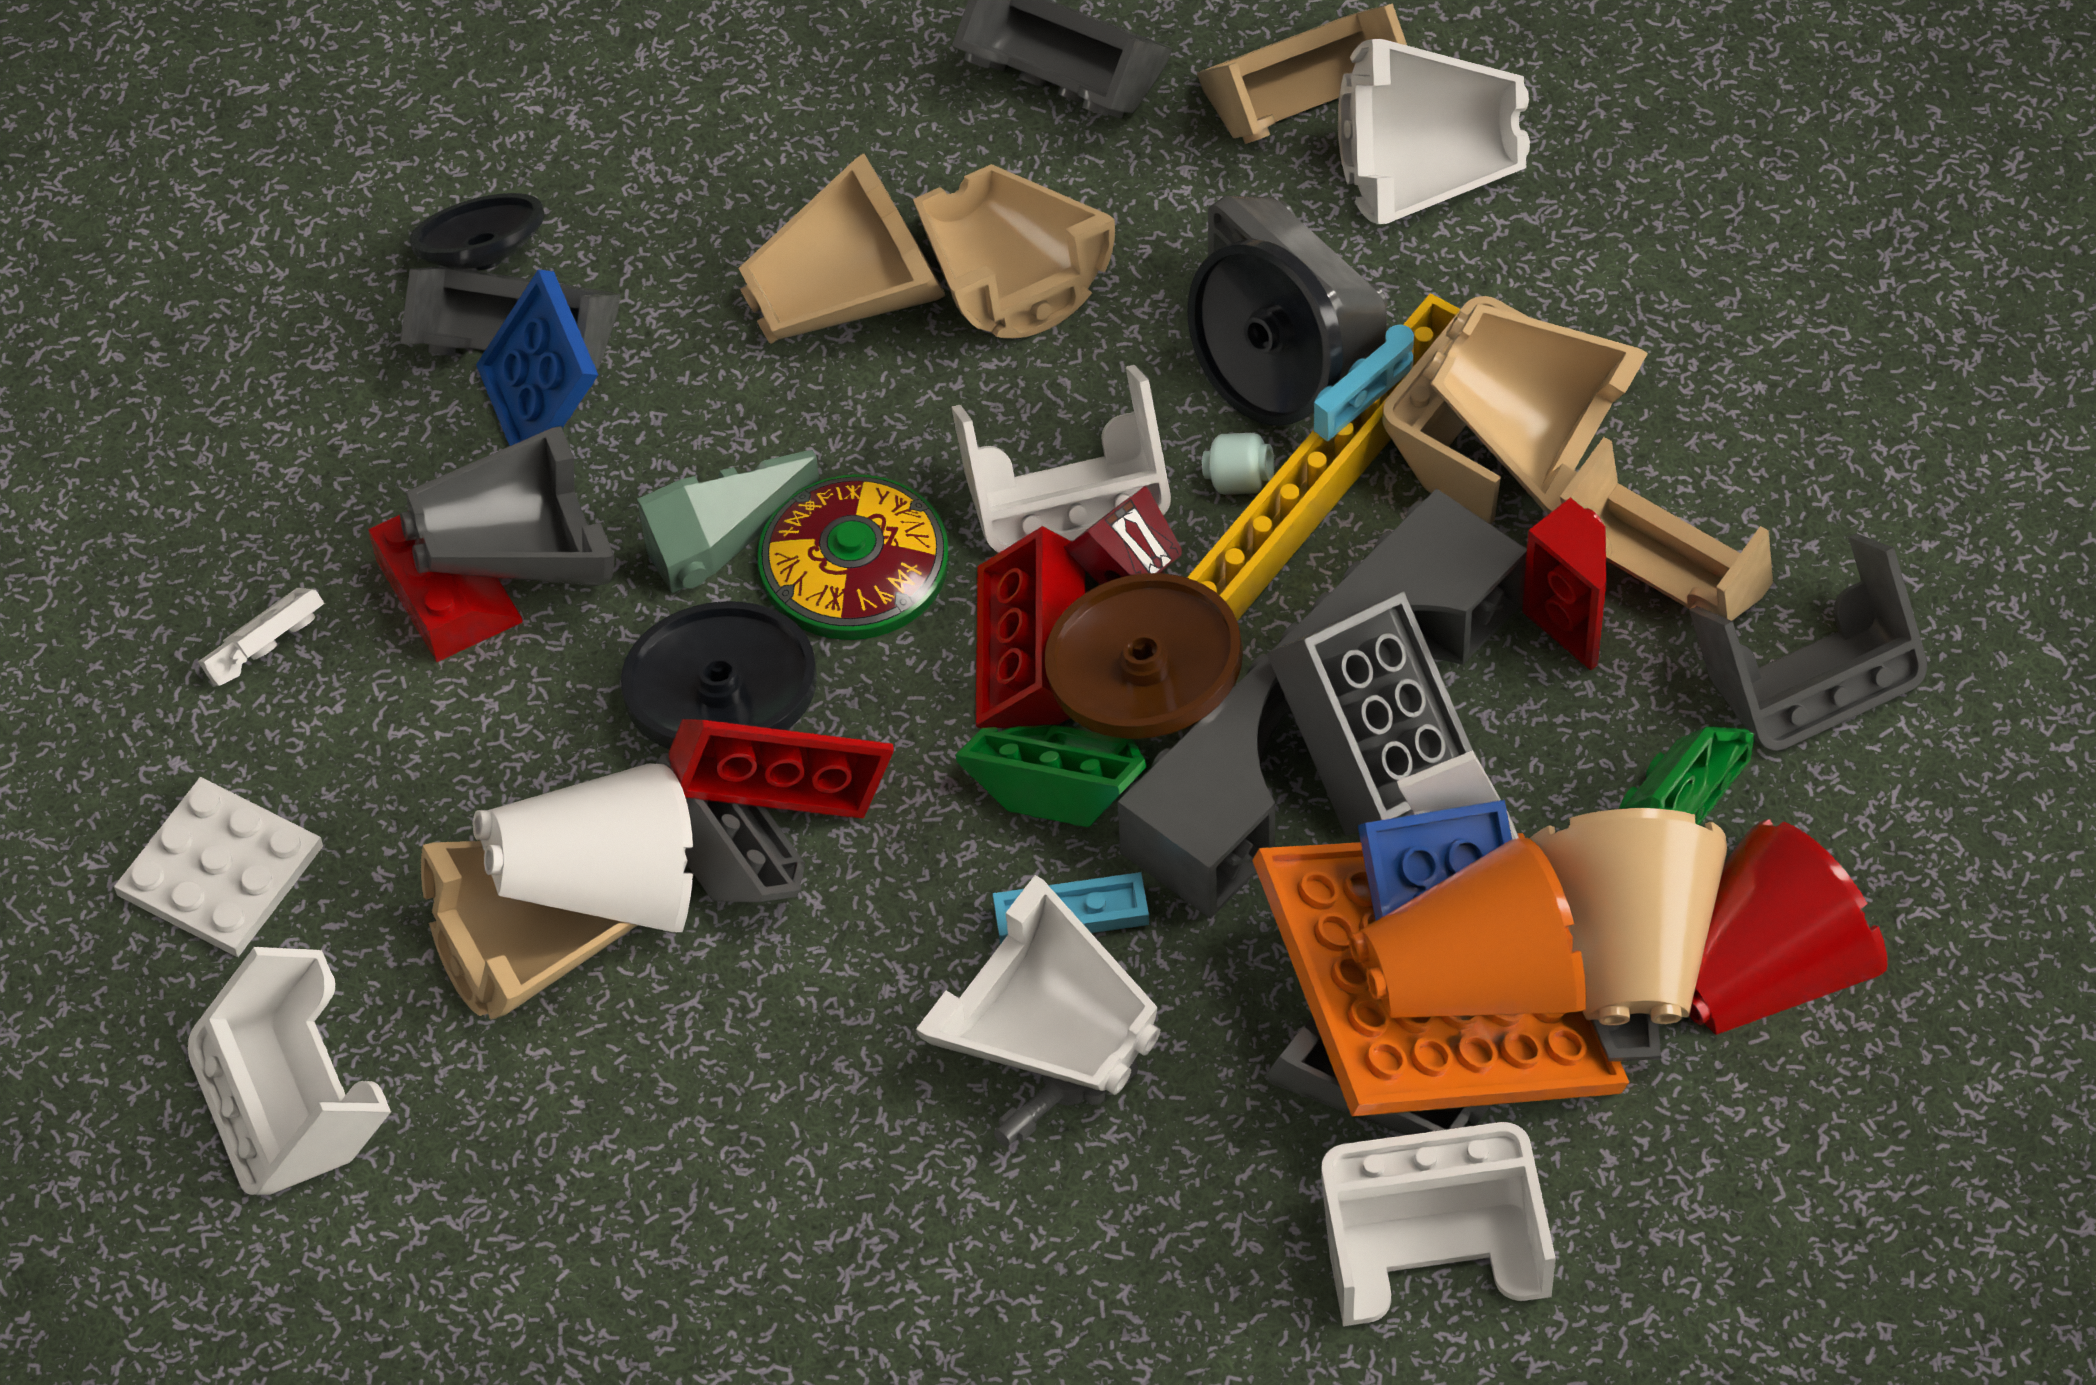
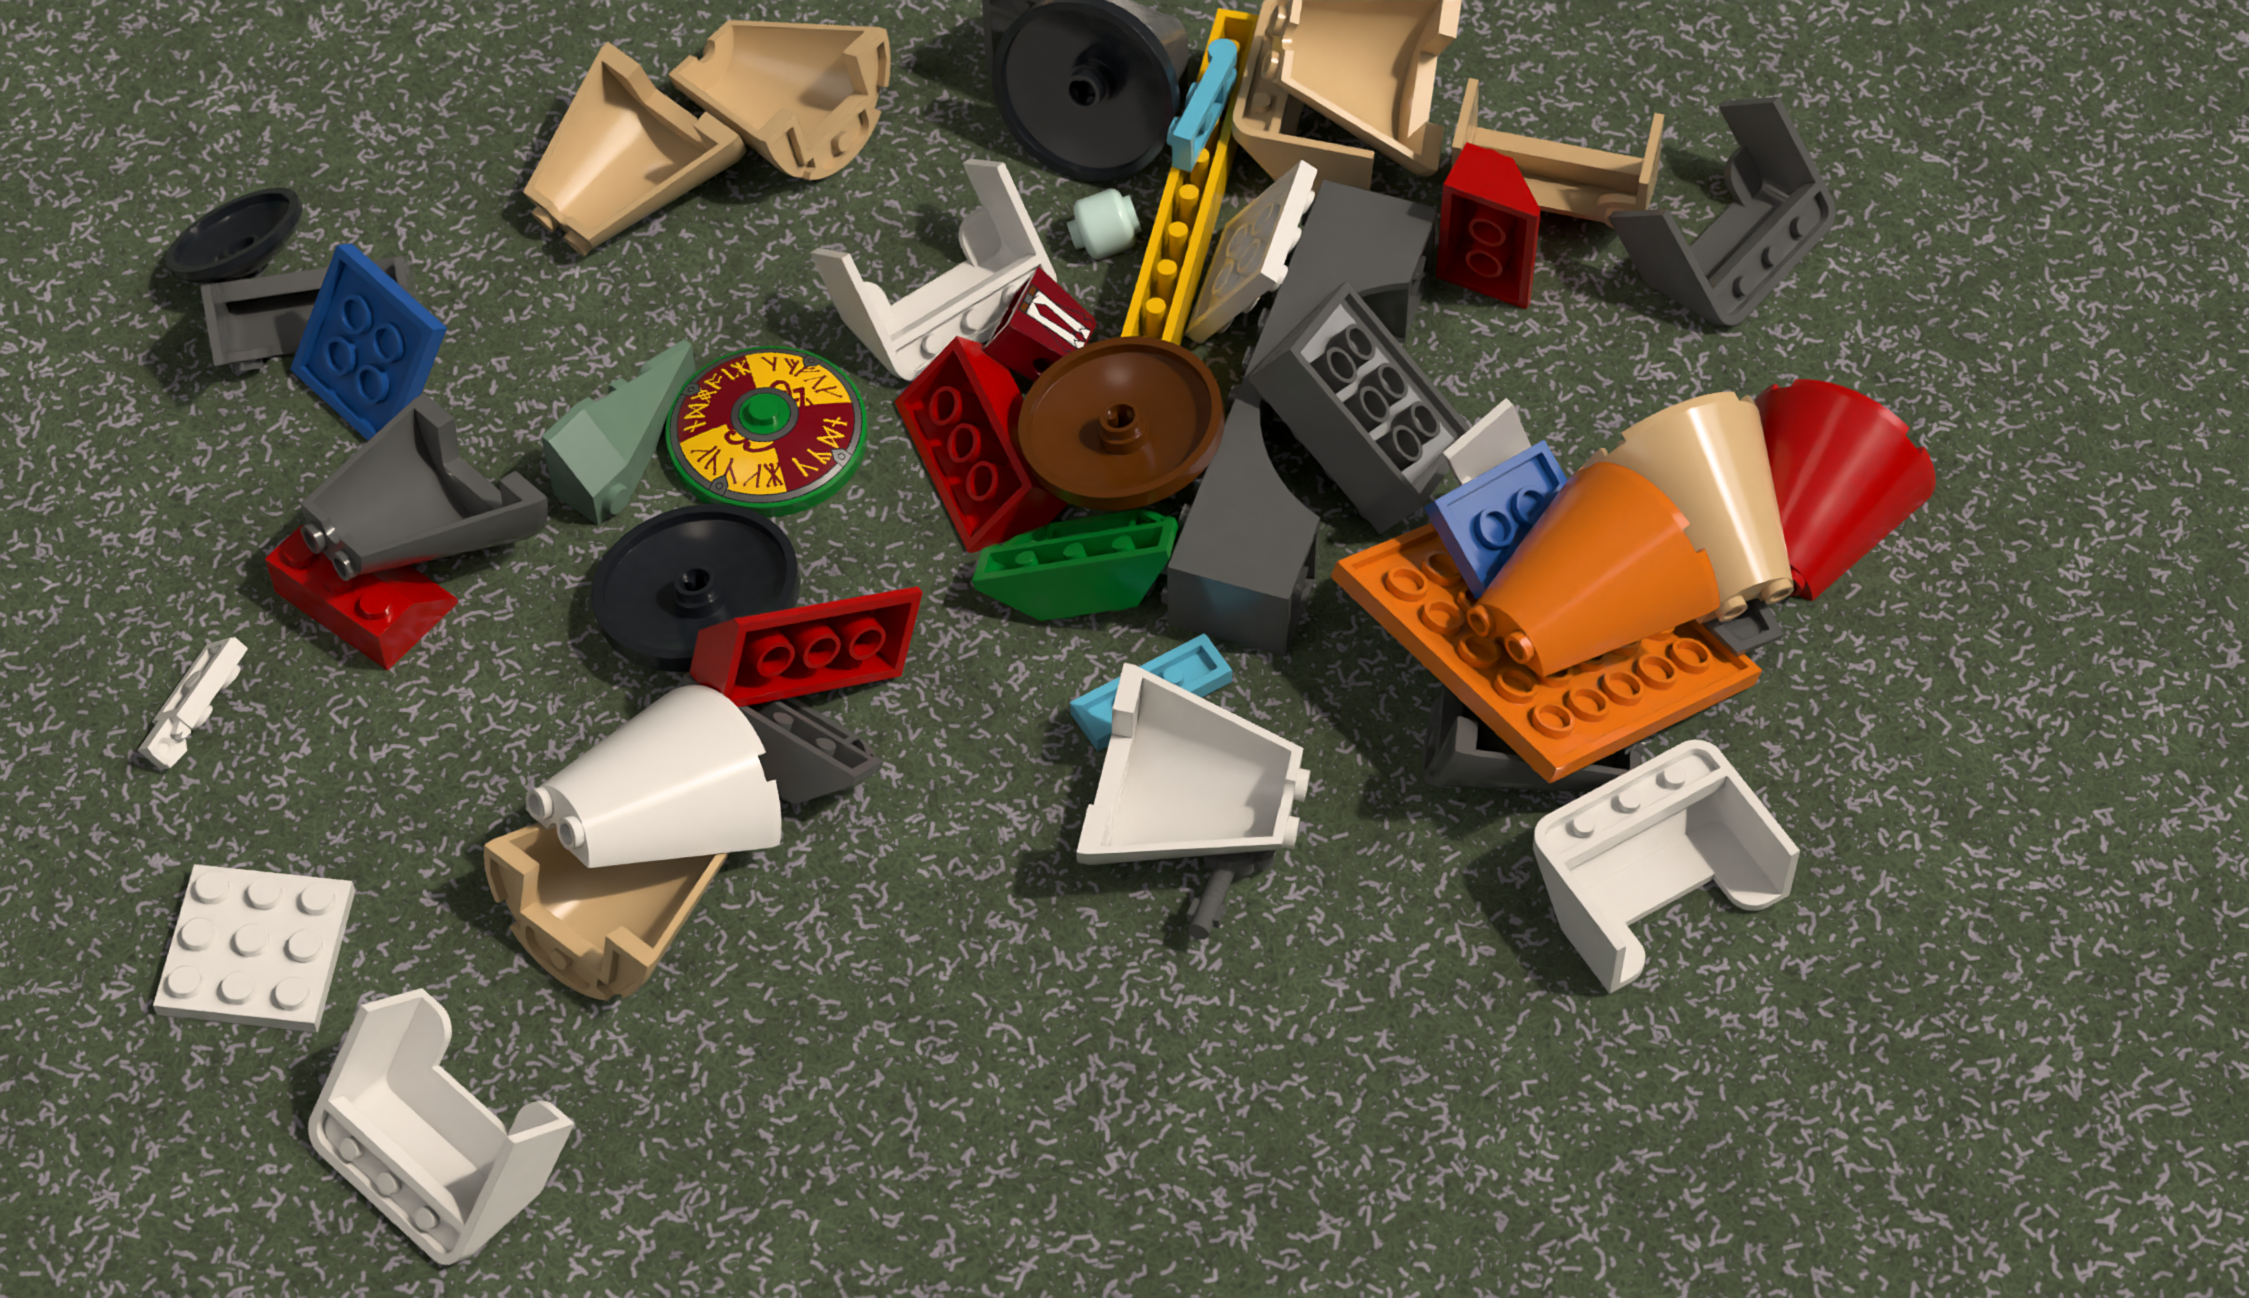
camera: 25 degrees left, 0 degrees up
(1356, 525) = (1252, 253): none -> white plate
(1693, 772) = (1674, 366): green wedge -> none

